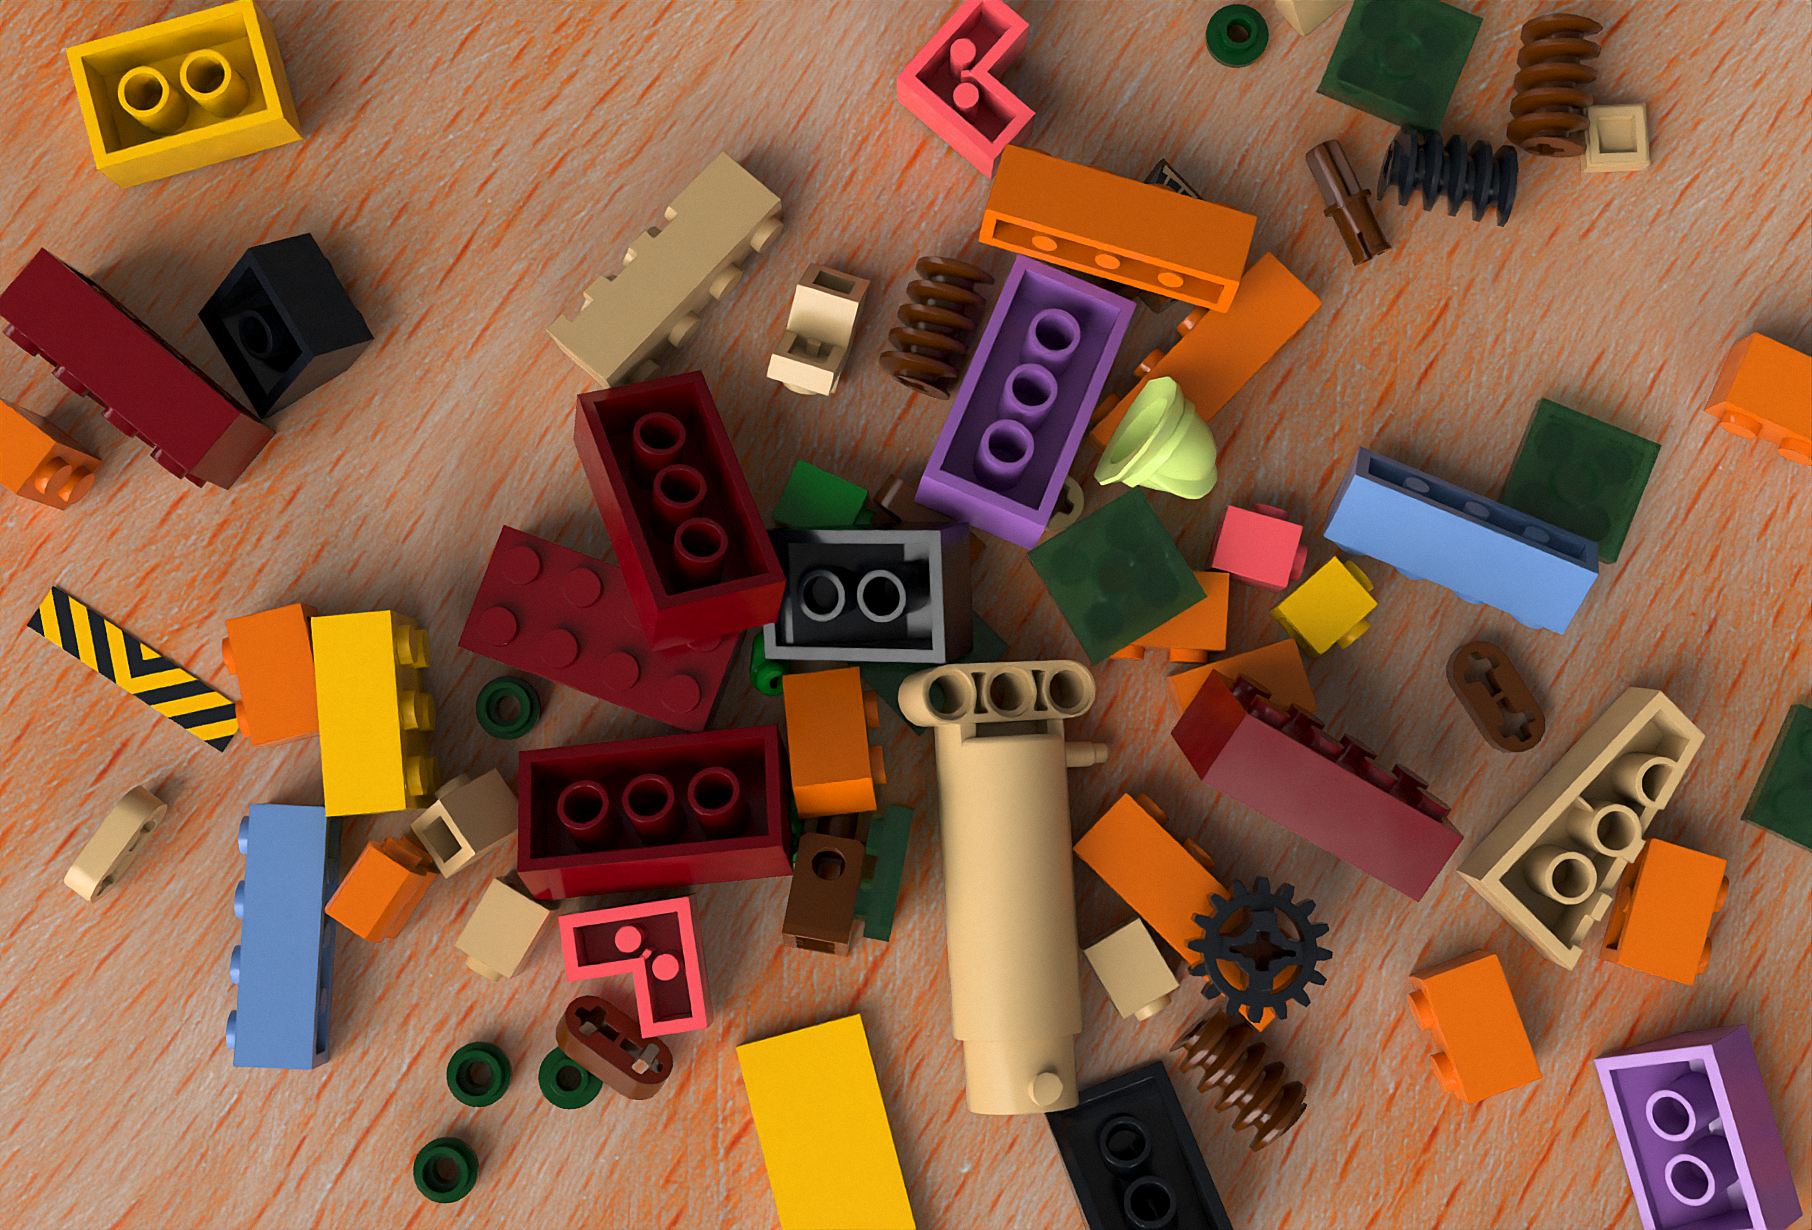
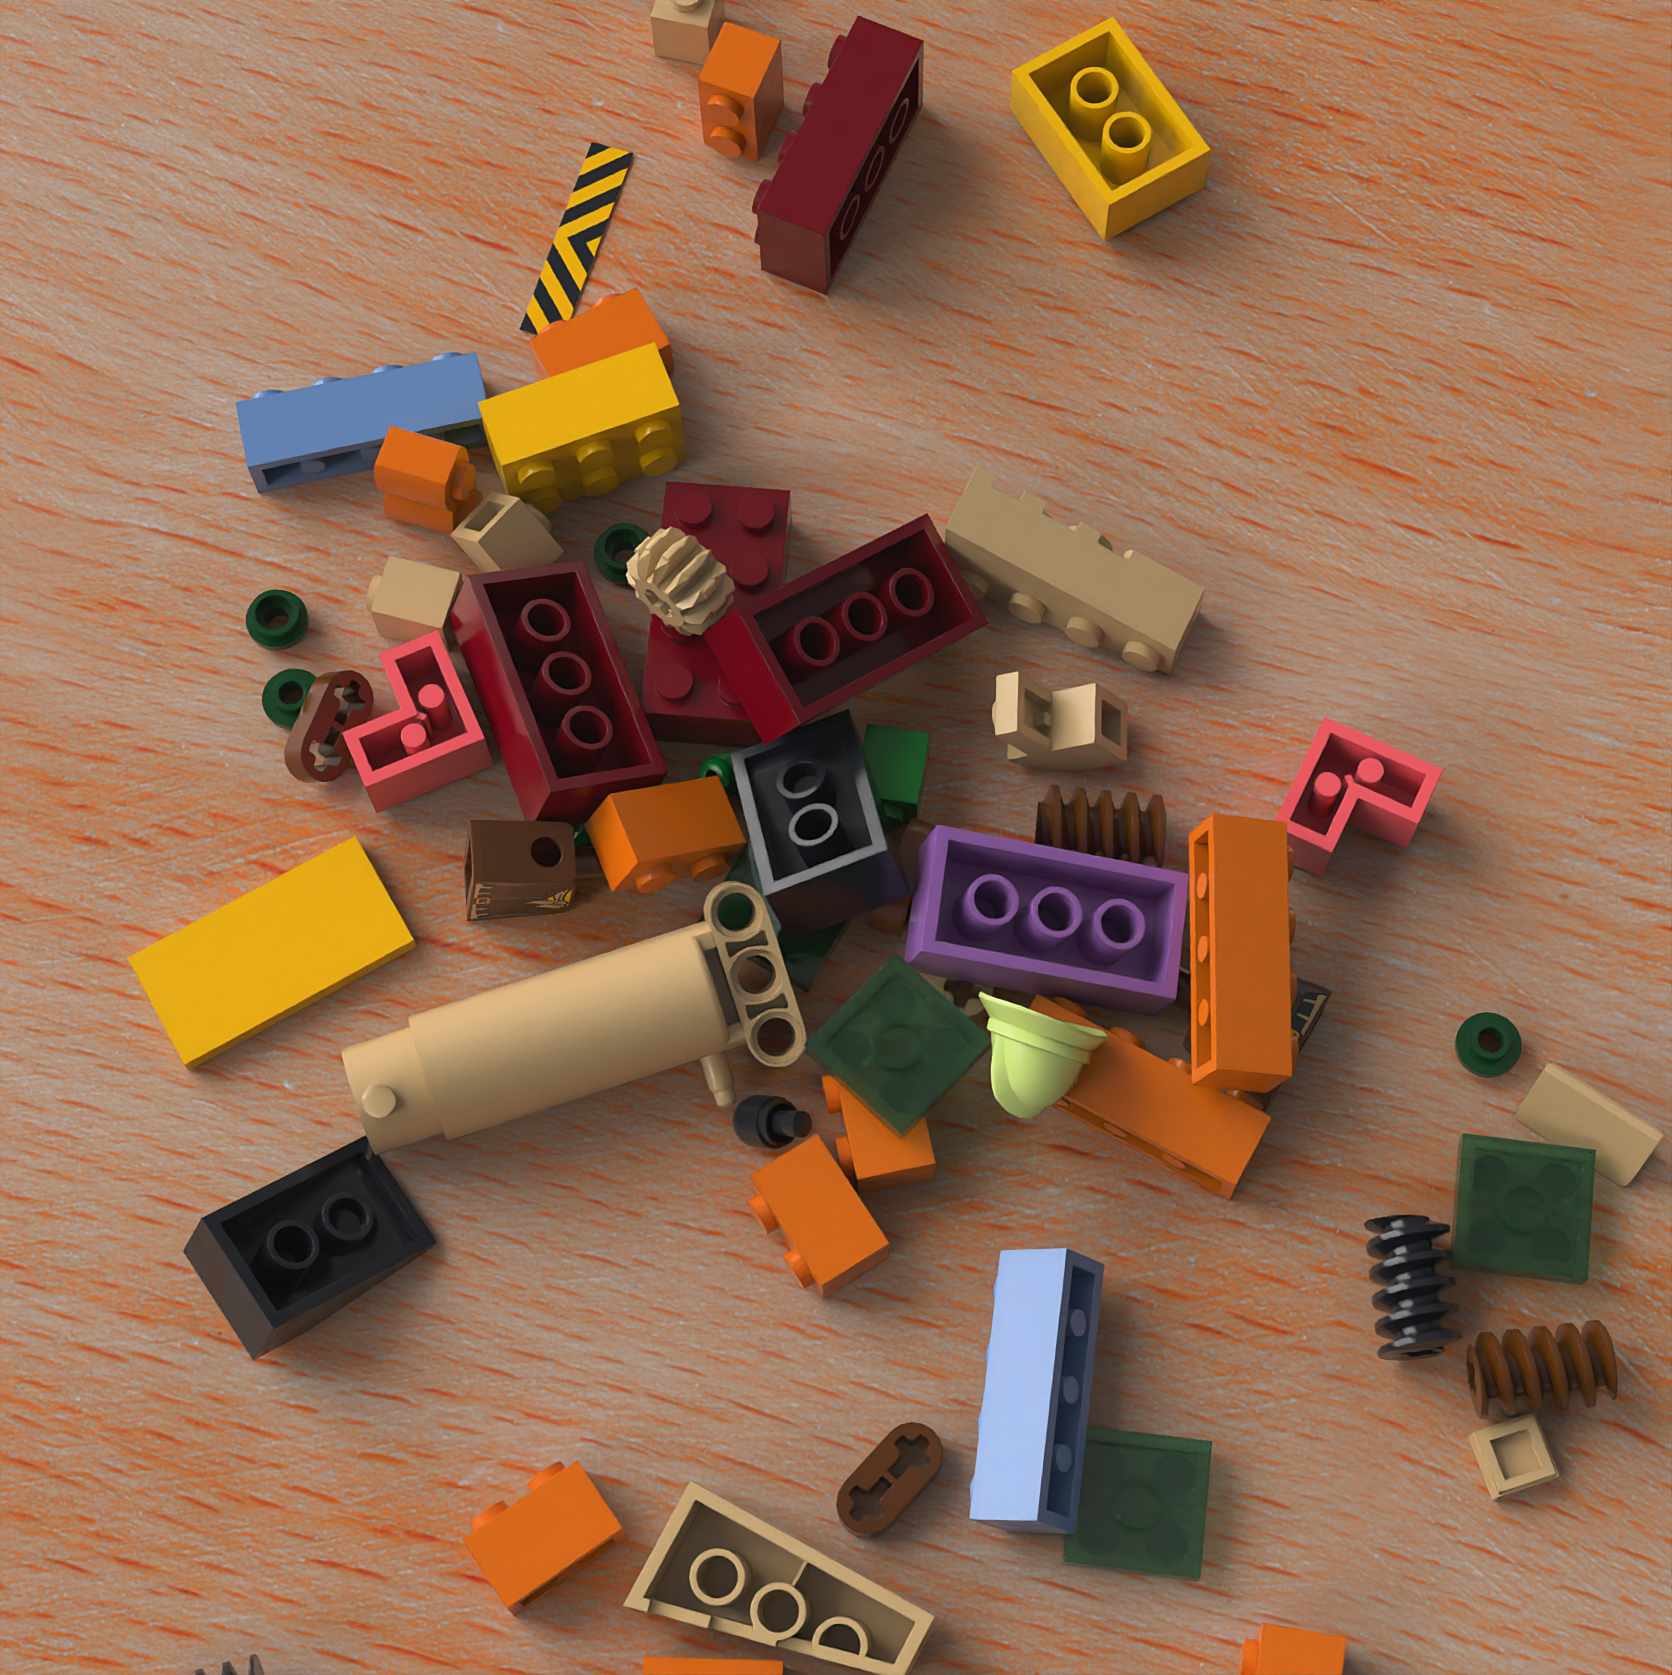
camera: 75 degrees right, 15 degrees down
(115, 844) = (413, 261): tan beam -> none
(284, 323) = (927, 269): black slope -> none
(432, 1184) = (176, 600): dark green plate -> none
(591, 659) = (680, 581): none -> tan gear
(878, 897) = (555, 917): clear green plate -> none
(1130, 969) = (519, 1179): tan brick -> none
(1135, 717) = (769, 1121): none -> black cylinder
(1165, 882) = (592, 1223): orange brick -> none
(1242, 1076) = (435, 1313): reddish brown piece -> none
(1257, 547) = (972, 1193): coral brick -> none
(1258, 980) = (539, 1281): black gear -> none
(1317, 784) = (743, 1287): dark red brick -> none
(1327, 608) = (931, 1278): yellow brick -> none
(1346, 201) = (1353, 1196): reddish brown axle -> none

